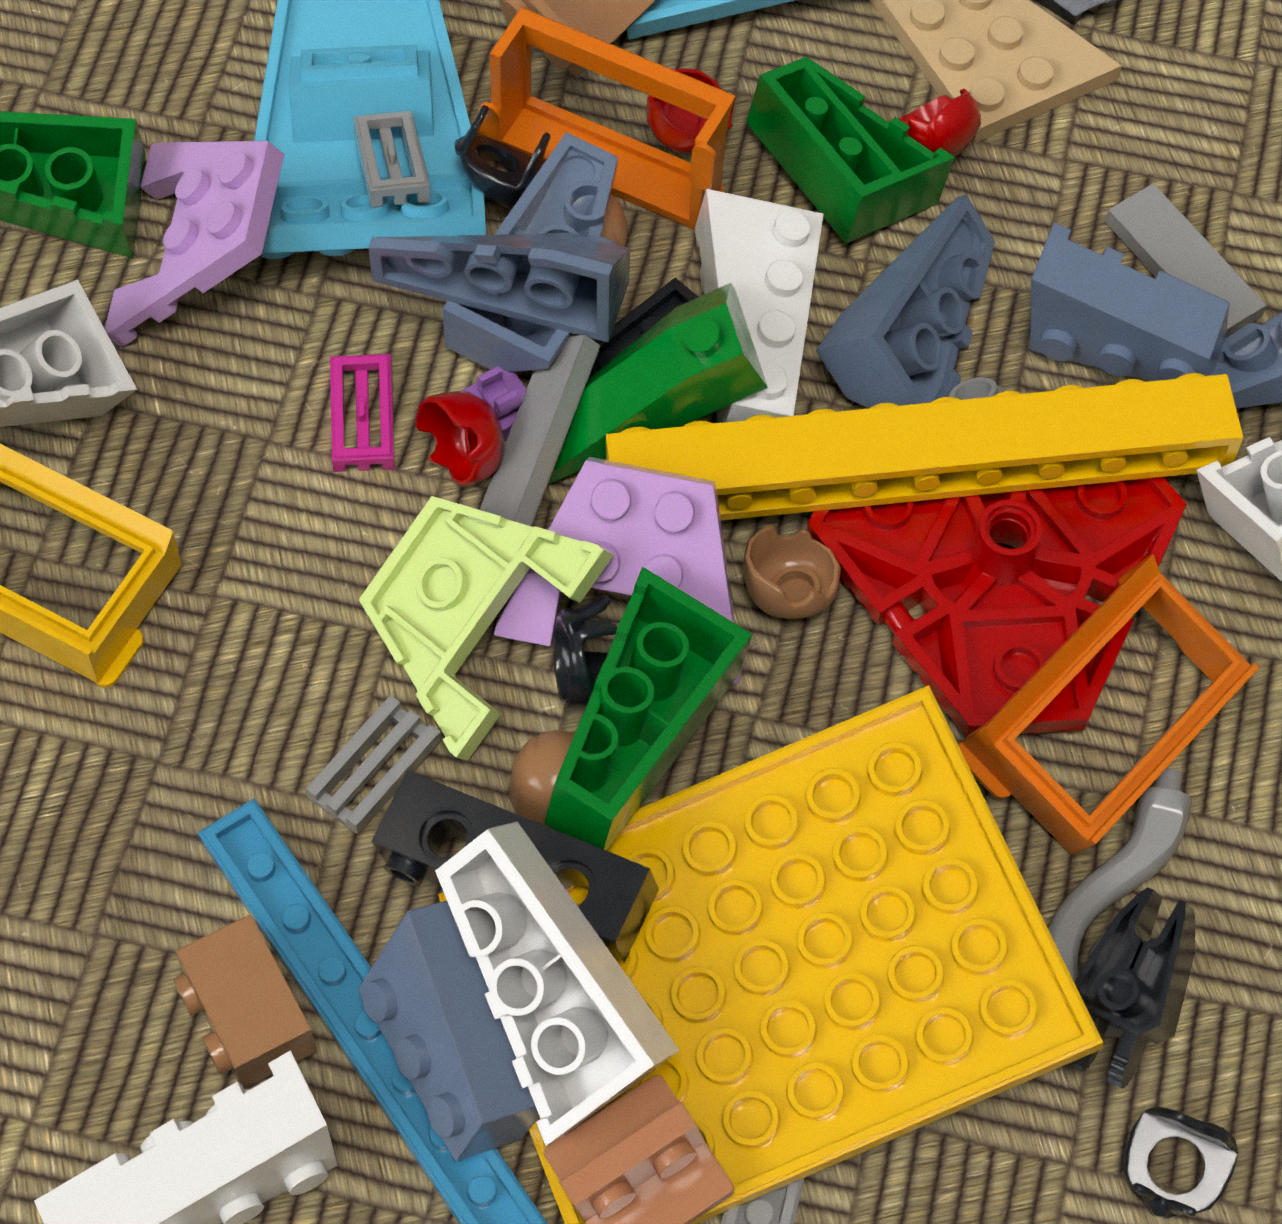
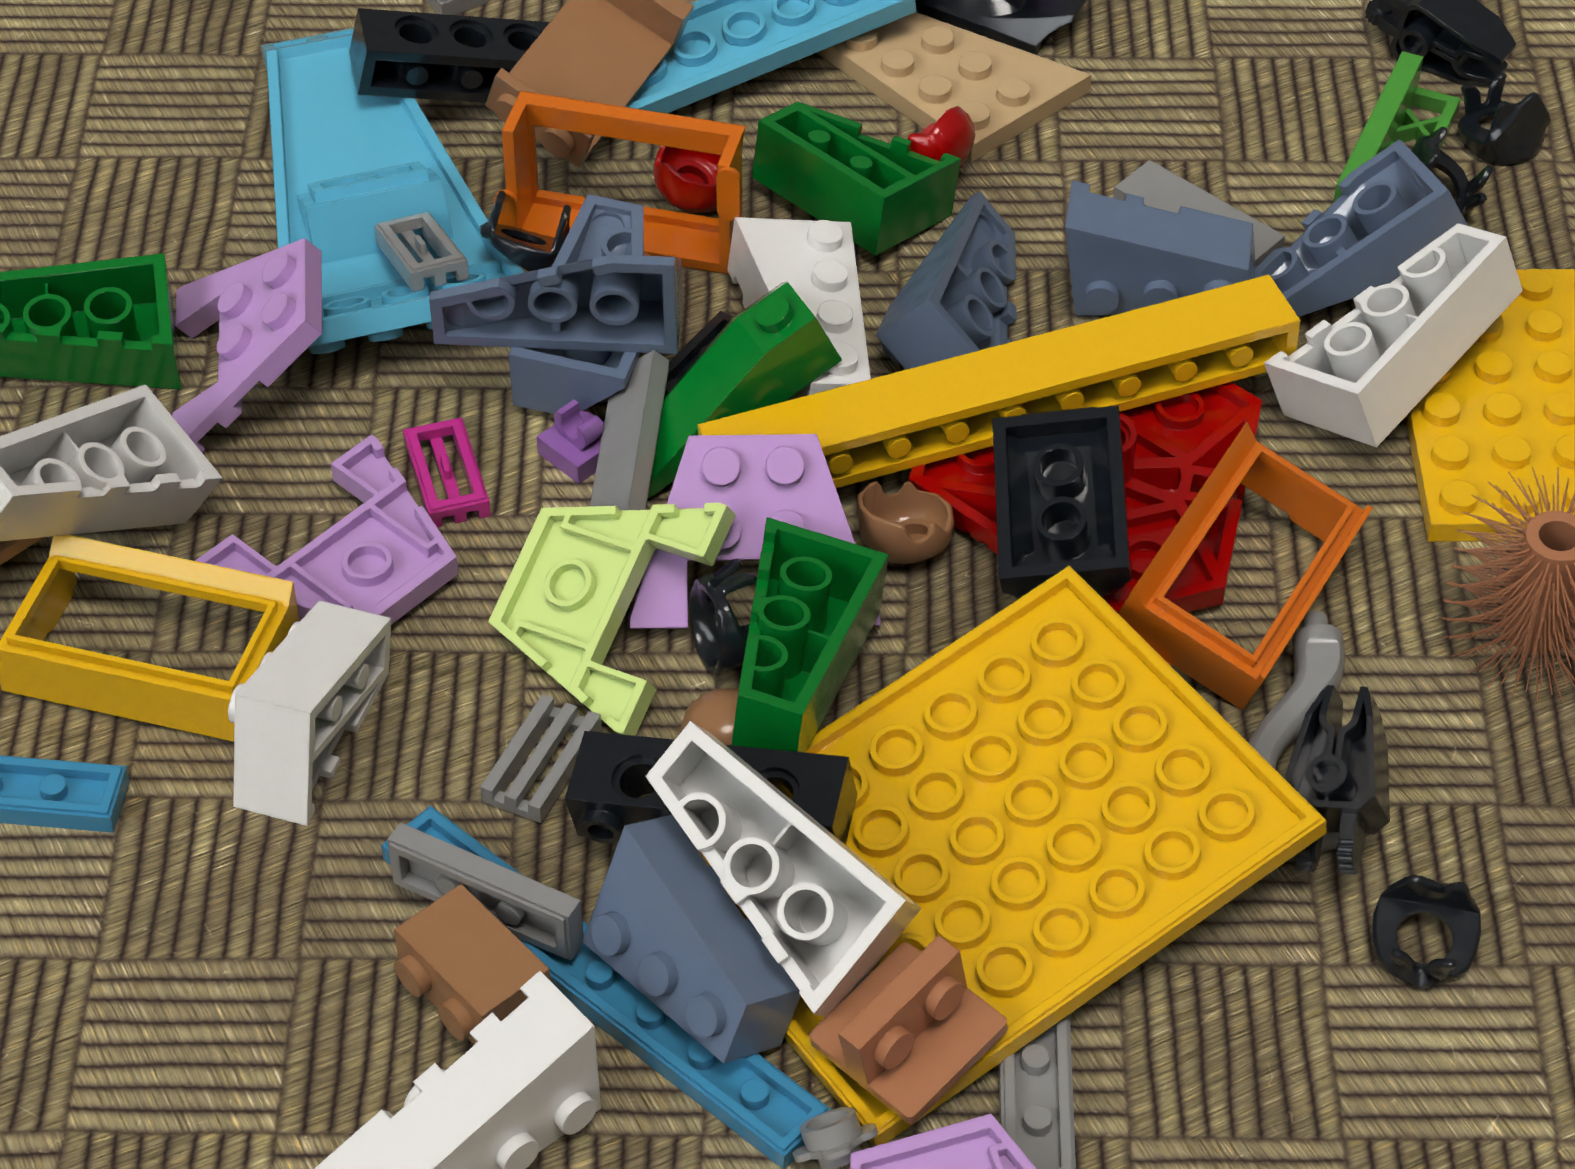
camera: 10 degrees left, 15 degrees down
(157, 660) = (302, 704): none -> white wedge
(256, 509) = (373, 559): none -> lavender wing
(276, 921) = (520, 903): none -> light grey tile
(465, 435) = (553, 461): red hair -> none
(944, 597) = (1061, 499): none -> black slope

